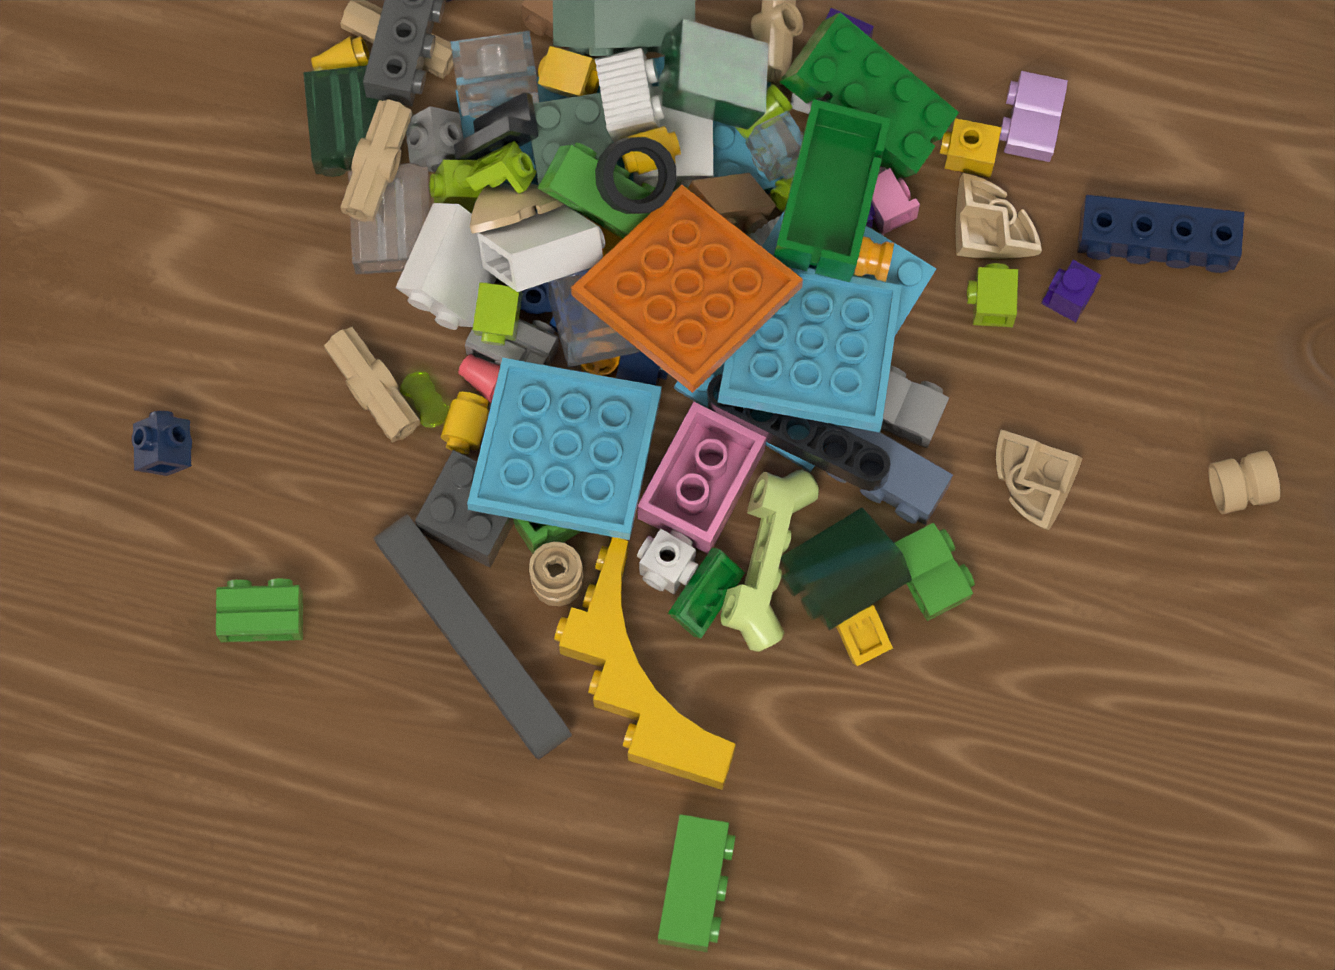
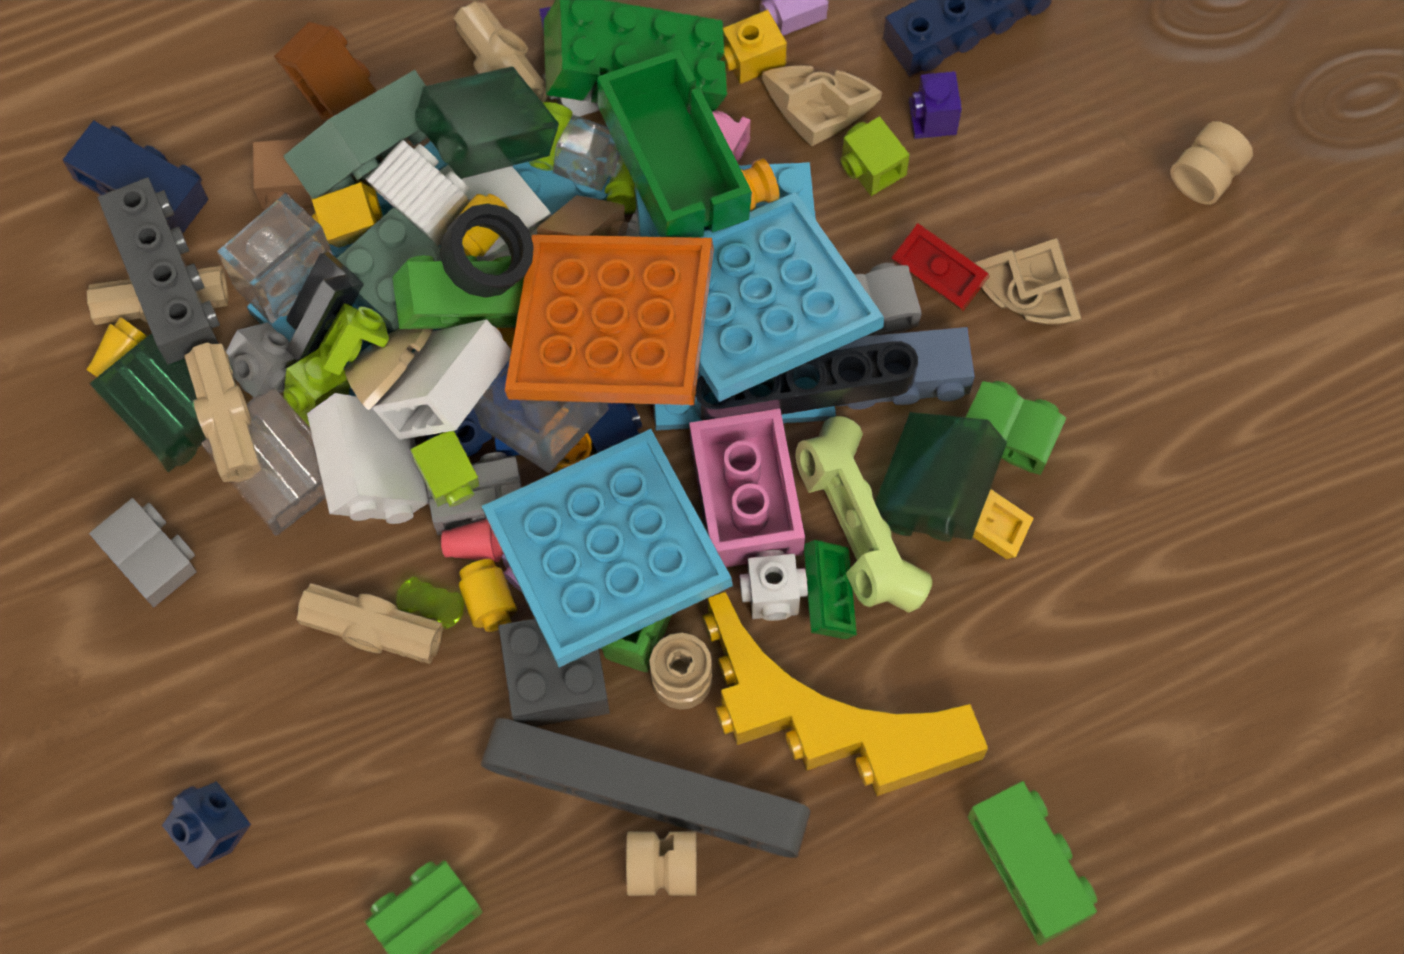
camera: 35 degrees left, 5 degrees down
(256, 221) = (144, 552): none -> light grey brick
(443, 696) = (661, 863): none -> tan wheel
(975, 416) = (940, 267): none -> red plate

